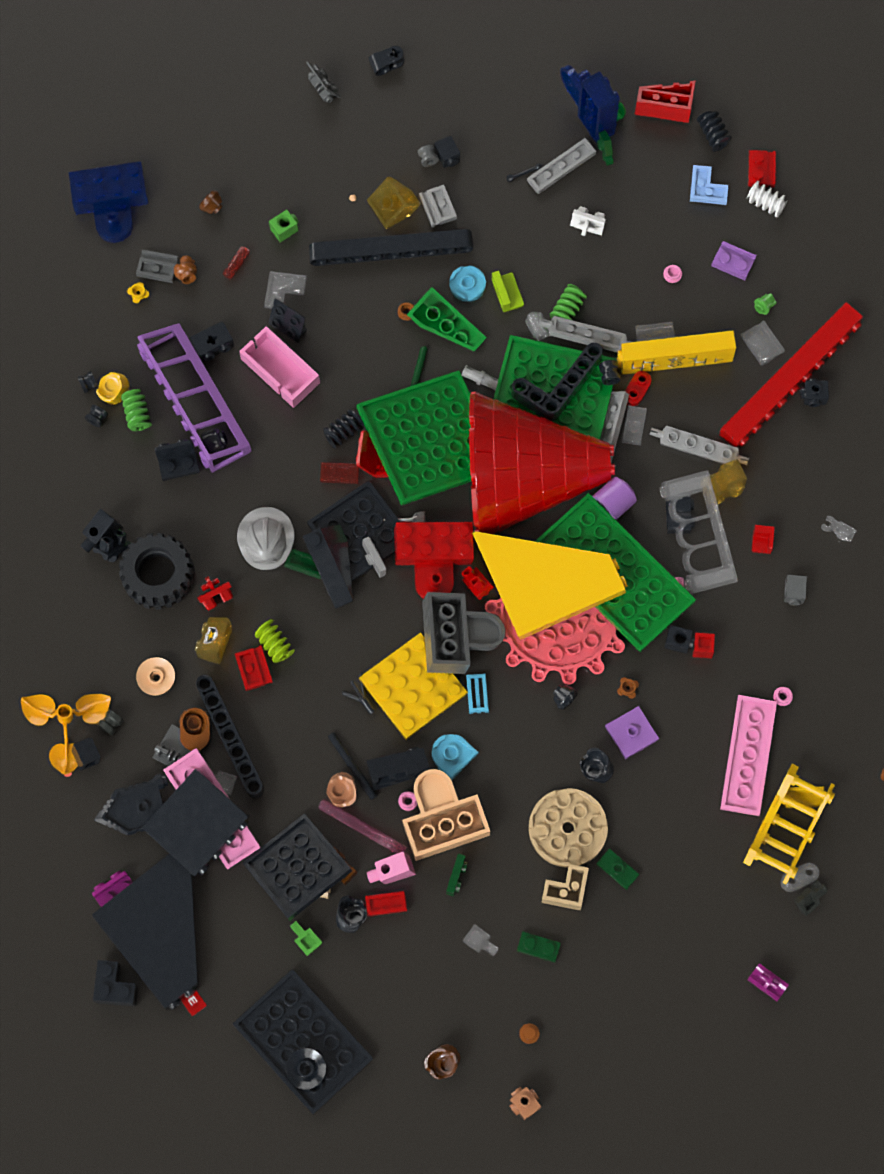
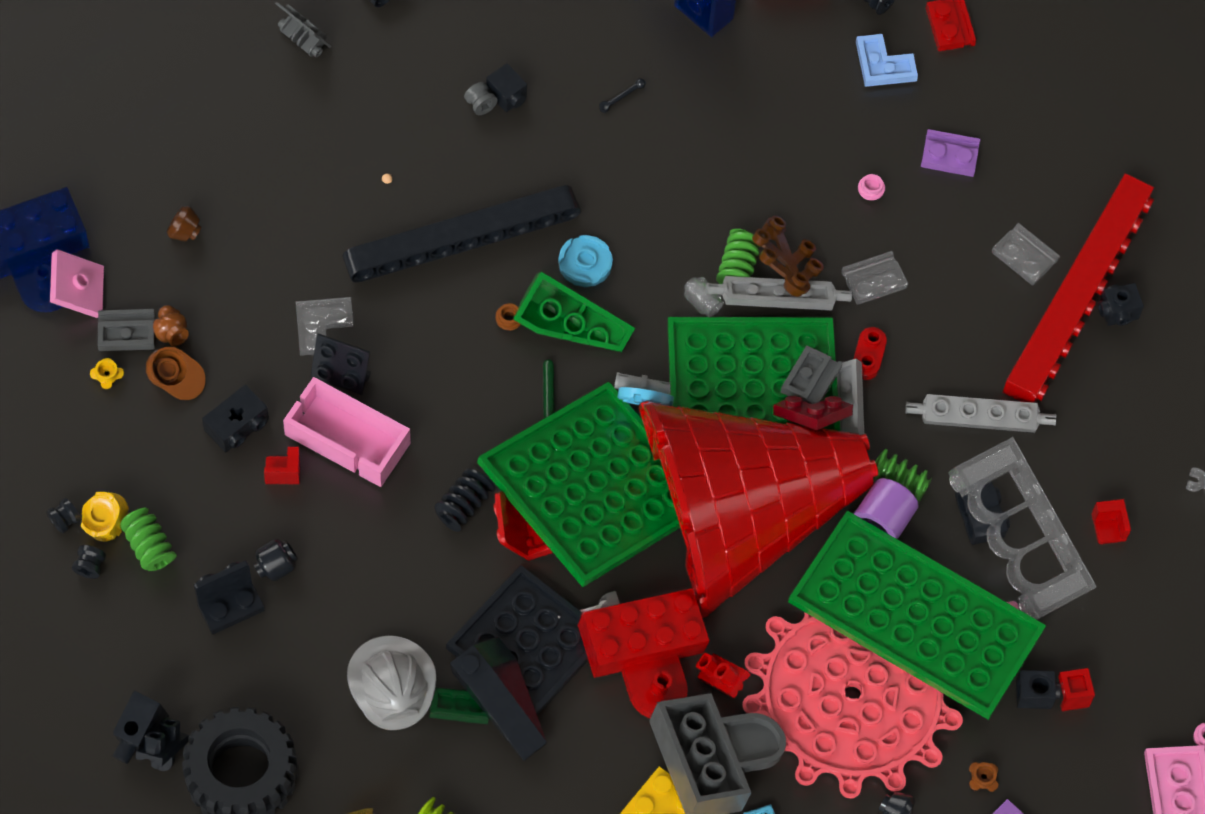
camera: 20 degrees left, 10 degrees down
(132, 228) = (76, 283): none -> bright pink plate
(181, 303) = (175, 373): none -> dark orange cap
(207, 598) = (347, 773): red hips -> none
(226, 415) = (145, 456): medium lavender window -> none
(234, 382) = (283, 468): none -> red panel
(236, 262) = (241, 301): clear red axle -> none
(284, 232) = (298, 245): bright green brick -> none
(339, 473) = (474, 564): clear red plate -> none
(373, 557) = (561, 671): light grey plate -> none
(393, 202) = (448, 171): clear yellow slope -> none
(437, 206) = (513, 163): light grey plate -> none
(477, 388) = (638, 395): none -> medium azure tile
(507, 291) = (644, 259): lime panel -> none
(547, 581) = (826, 647): yellow slope -> none
(561, 166) = (672, 75): light grey plate -> none
(563, 387) = (771, 370): black beam -> none
(584, 425) = (813, 415): none -> dark red plate
(588, 222) = (733, 141): white hips -> none
(591, 398) = (811, 376): none -> dark grey plate
(599, 329) = (795, 282): none -> reddish brown plant
(605, 146) = (729, 33): dark green plate -> none
(609, 372) = (826, 335): black wheel -> none
(631, 477) = (909, 478): none -> bright green piece
(634, 425) = (881, 404): clear plate -> none
(676, 352) = (913, 290): yellow brick -> none
(728, 481) = (1042, 447): clear yellow brick -> none
(764, 303) = (1012, 200): bright green hose -> none
(767, 199) = (971, 60): white piece -> none
(795, 589) = (1178, 581): dark grey brick -> none

